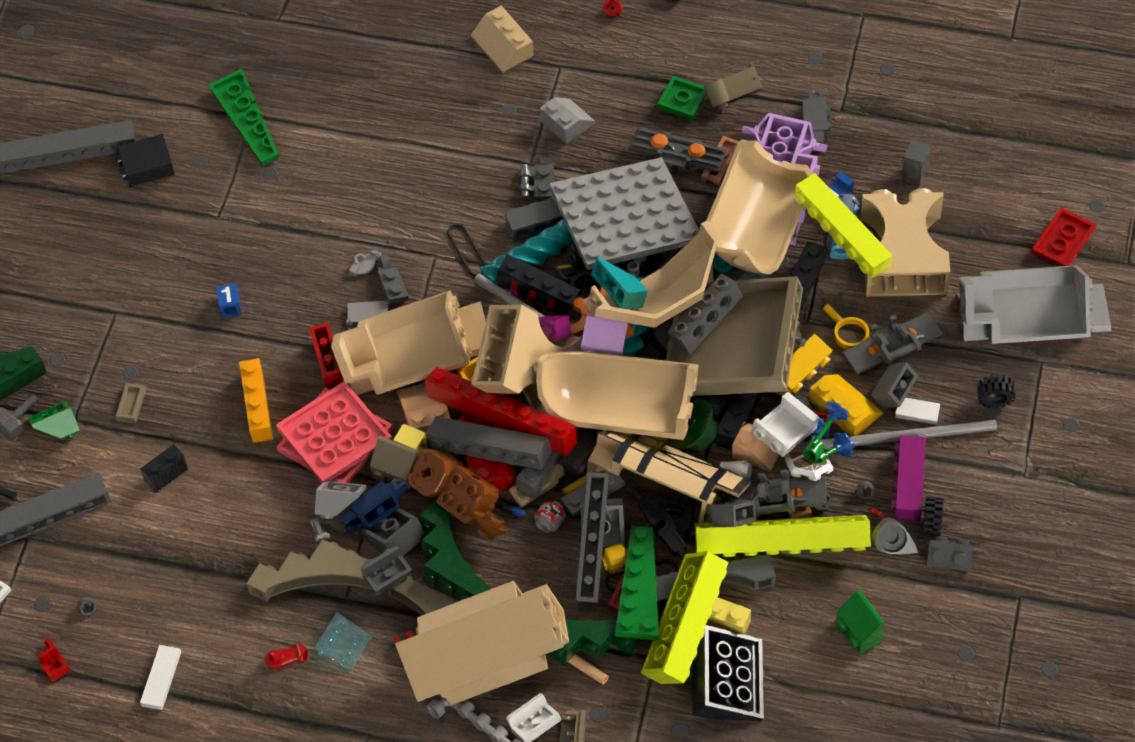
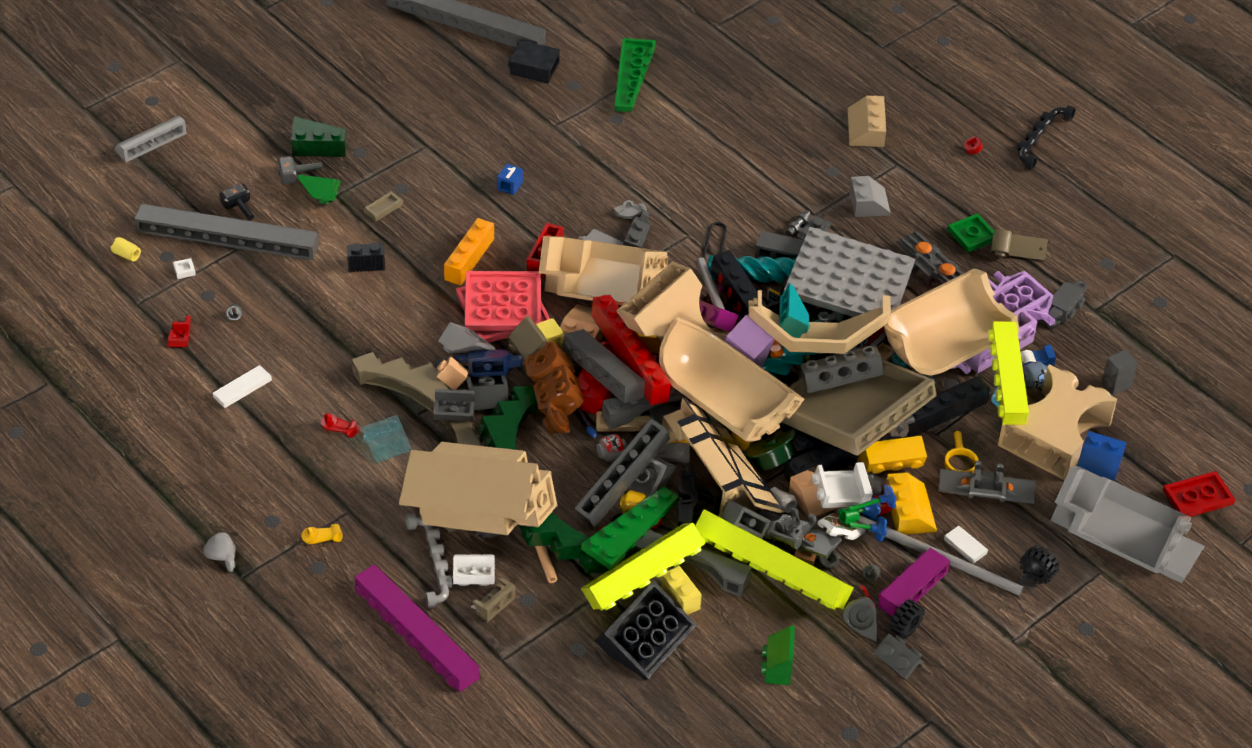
camera: 30 degrees right, 10 degrees down
(318, 531) = (436, 358): light grey piece -> none
(351, 537) = (452, 373): none -> light nougat brick
(894, 385) = (960, 513): dark grey brick -> none
(965, 253) = (1102, 455): none -> blue slope

